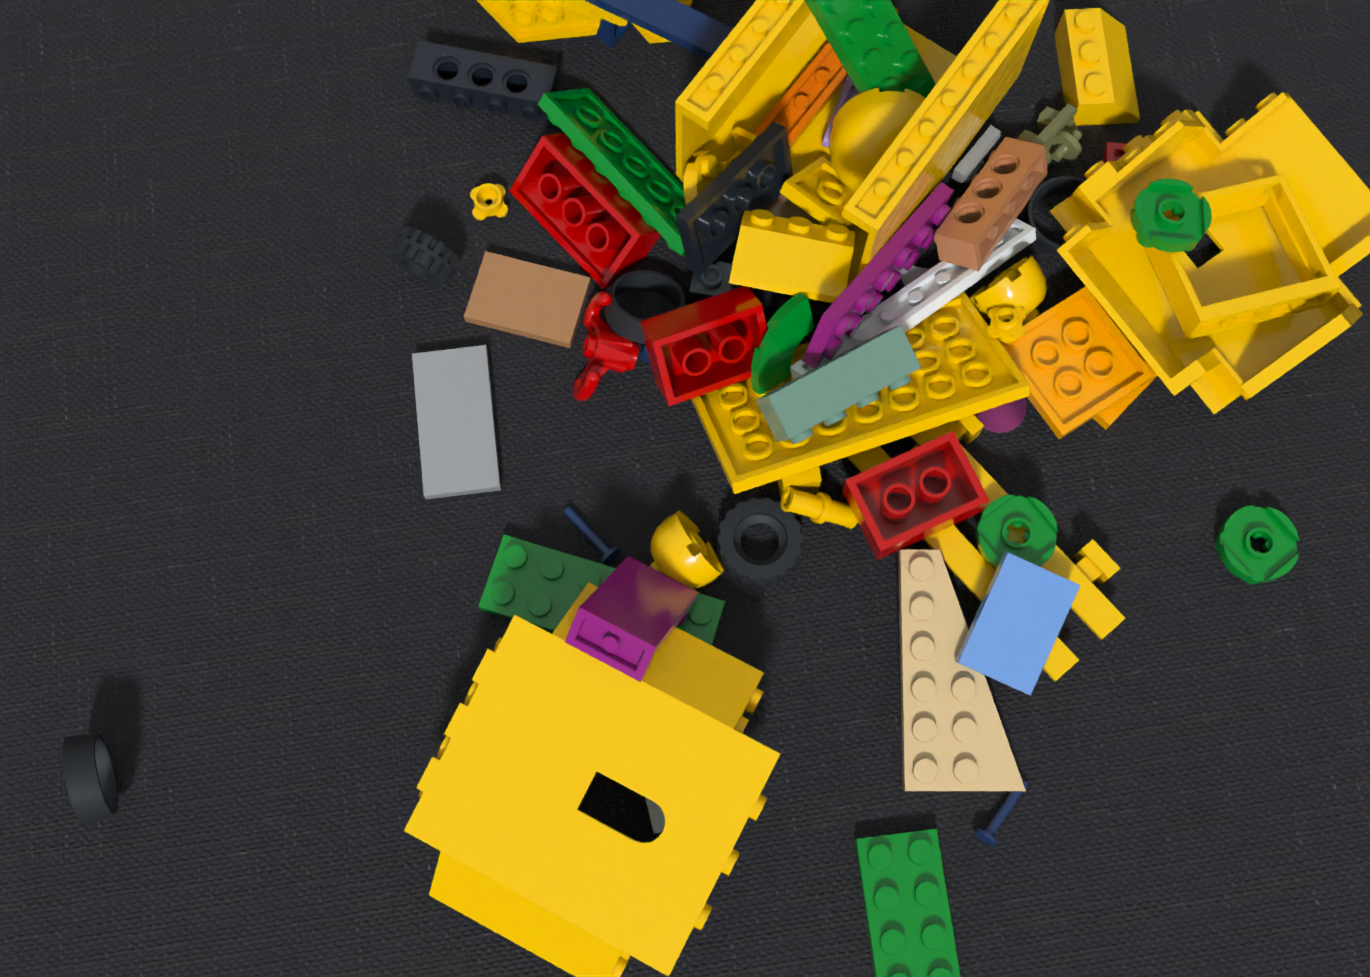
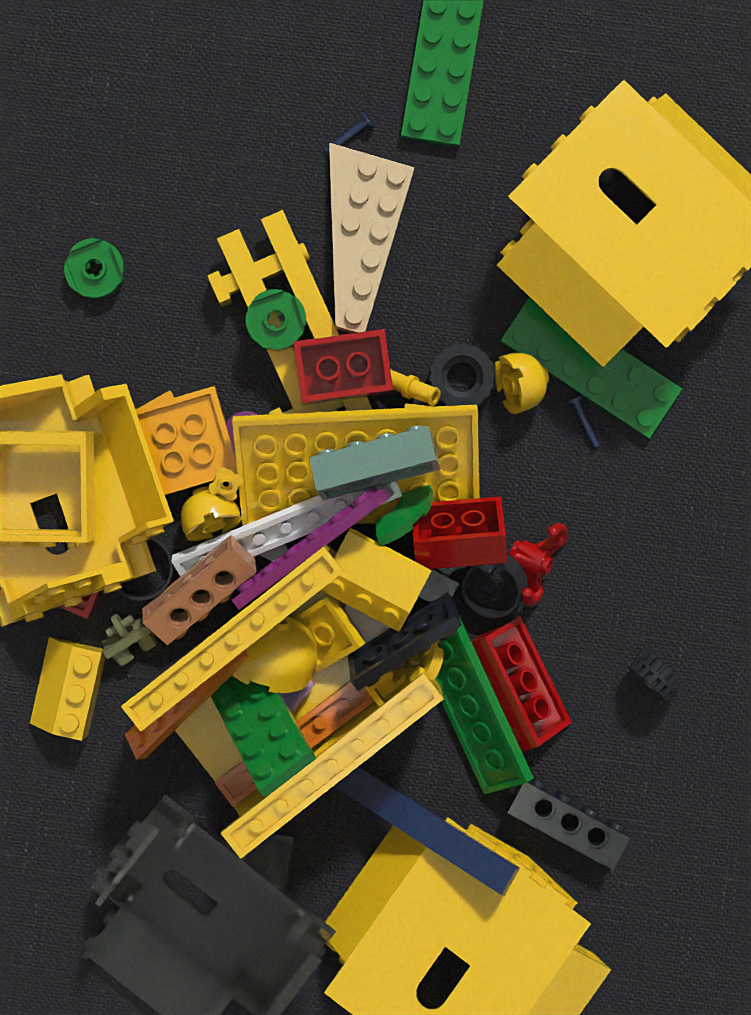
camera: 165 degrees left, 15 degrees up
(456, 422) = (662, 539): light grey tile -> none
(488, 192) = (596, 722): yellow plate -> none
(527, 299) = (581, 623): medium nougat tile -> none
(630, 617) = (579, 329): magenta panel -> none
(973, 160) = (194, 638): light grey tile -> none
(1017, 623) = (298, 254): medium blue tile -> none
(1164, 234) = (60, 530): green plate -> none

